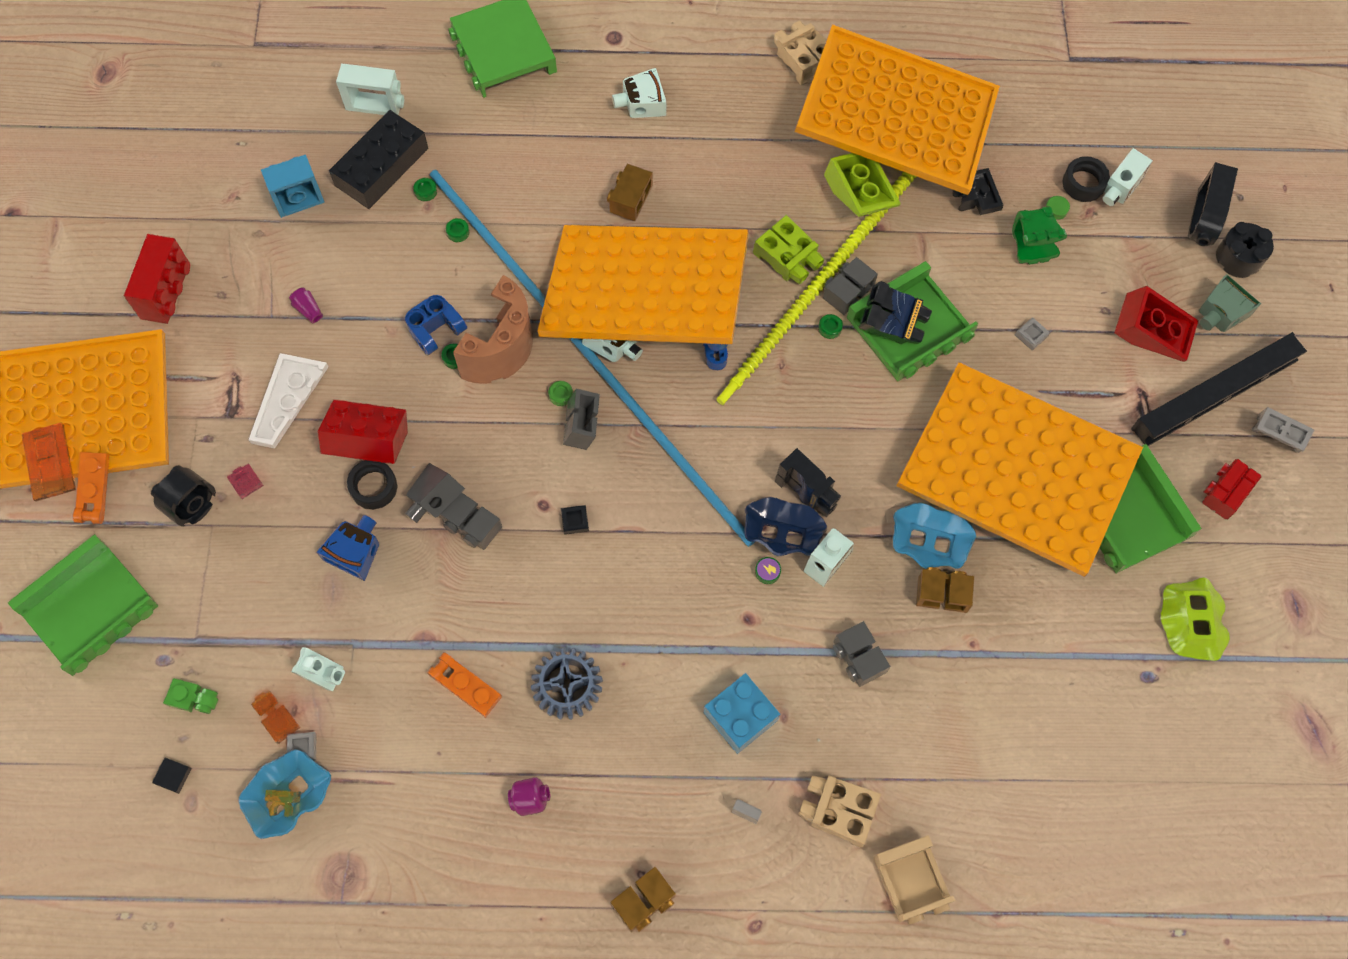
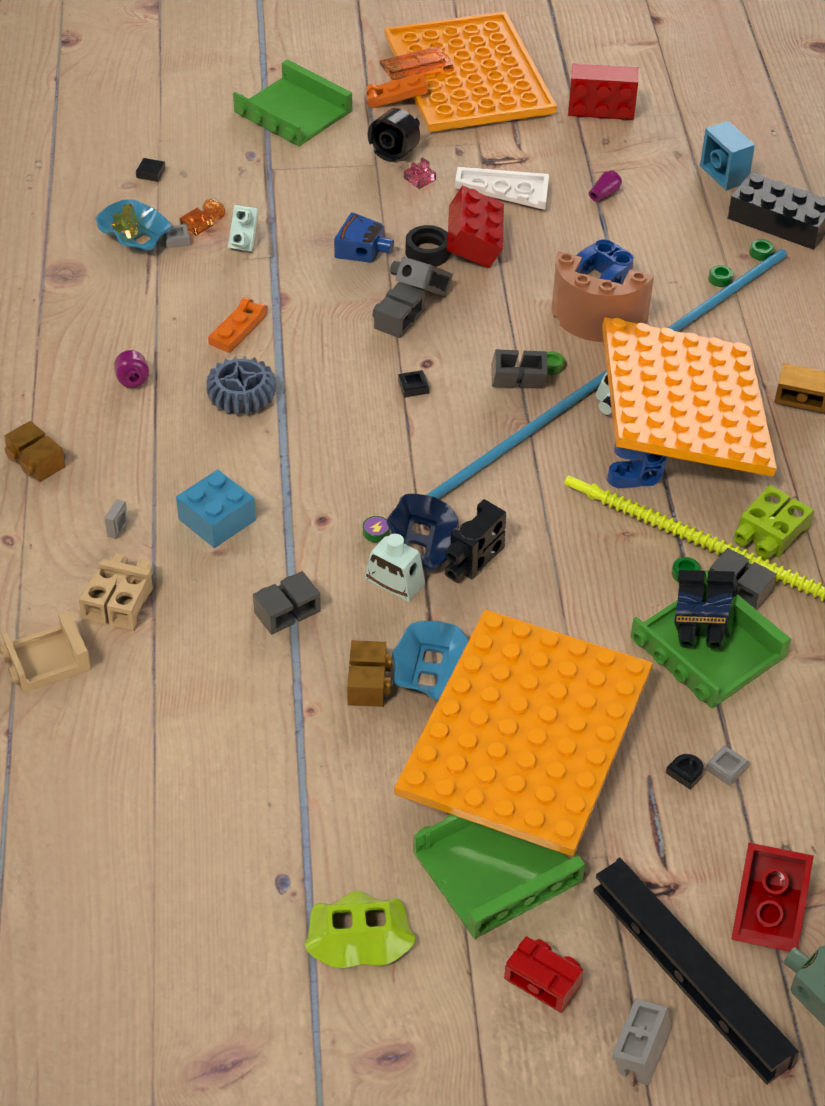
camera: 85 degrees right, 20 degrees down
(185, 695) = (217, 170): bright green plate -> none
(1036, 362) = (686, 770): none -> black tile

